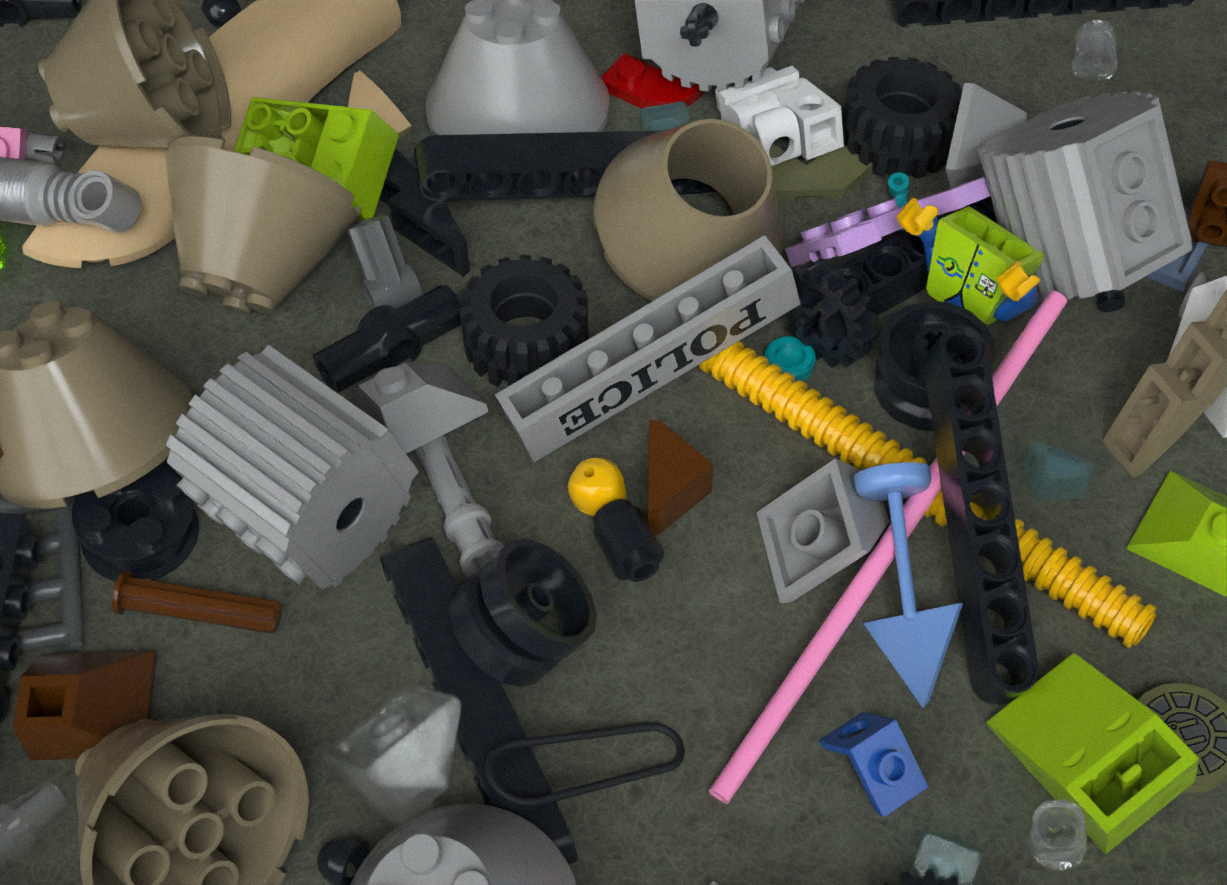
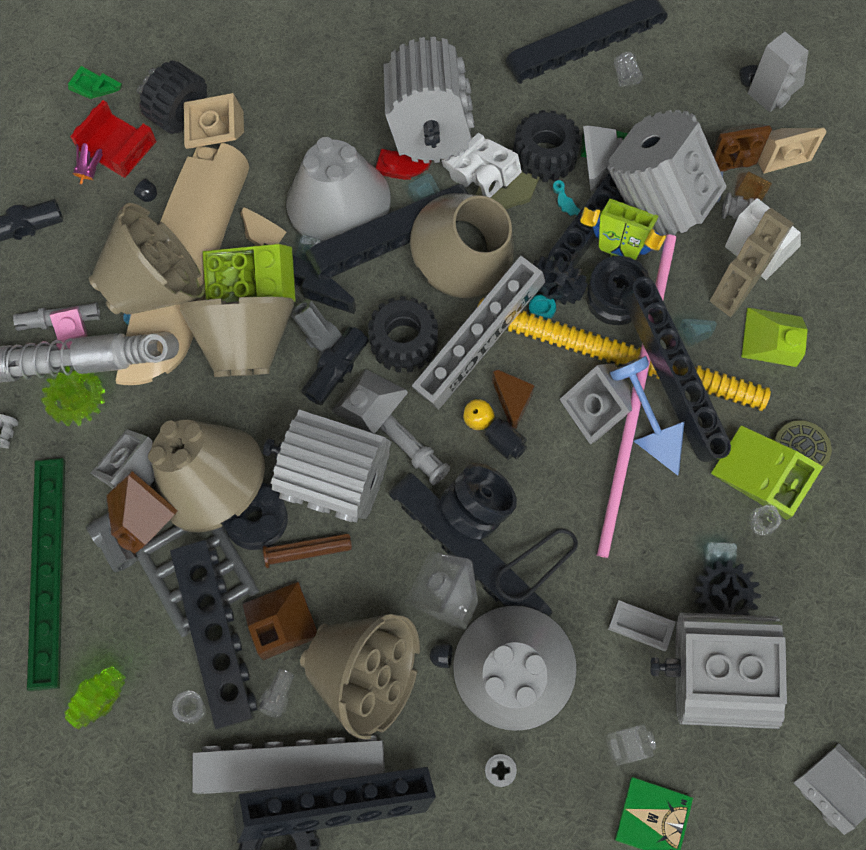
camera: 20 degrees left, 15 degrees up
(858, 231) = (554, 226): lavender wing -> none
(879, 759) = (670, 510): blue bracket -> none

